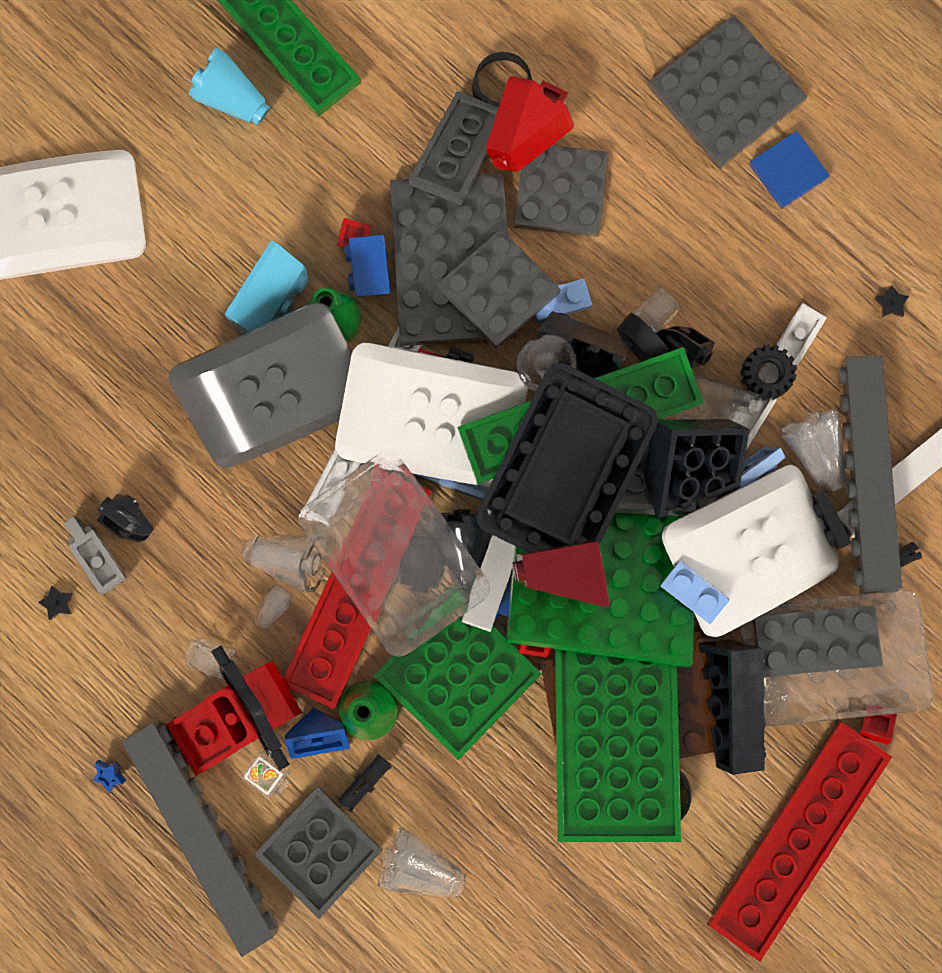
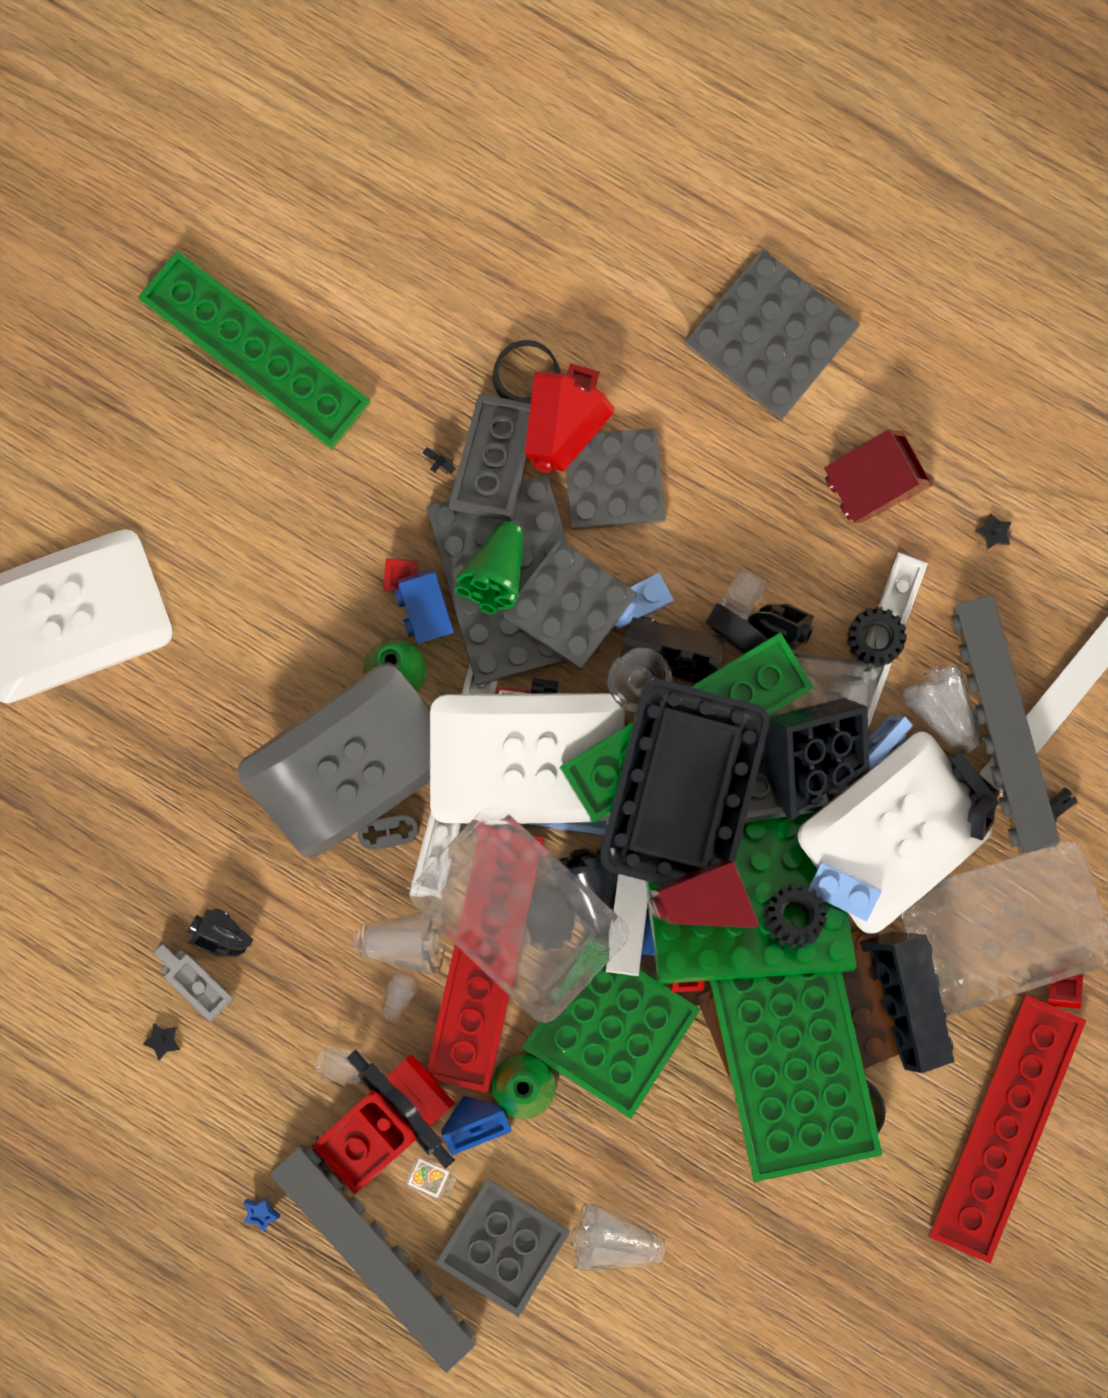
camera: 15 degrees left, 0 degrees up
(228, 89) = (229, 442): medium azure cone -> none
(267, 290) = (322, 658): medium azure slope -> none
(294, 466) = (388, 824): none -> dark grey beam
(350, 798) = (525, 1184): black pin -> none
(408, 143) = (438, 462): none -> black piece
(436, 243) = (494, 570): none -> green cone
(657, 593) = (803, 899): none -> black tyre
(789, 170) = (856, 408): blue tile -> none
(796, 230) = (877, 476): none -> dark red slope
(819, 640) = (984, 914): dark grey plate -> none
(833, 551) = (982, 816): none -> black plate

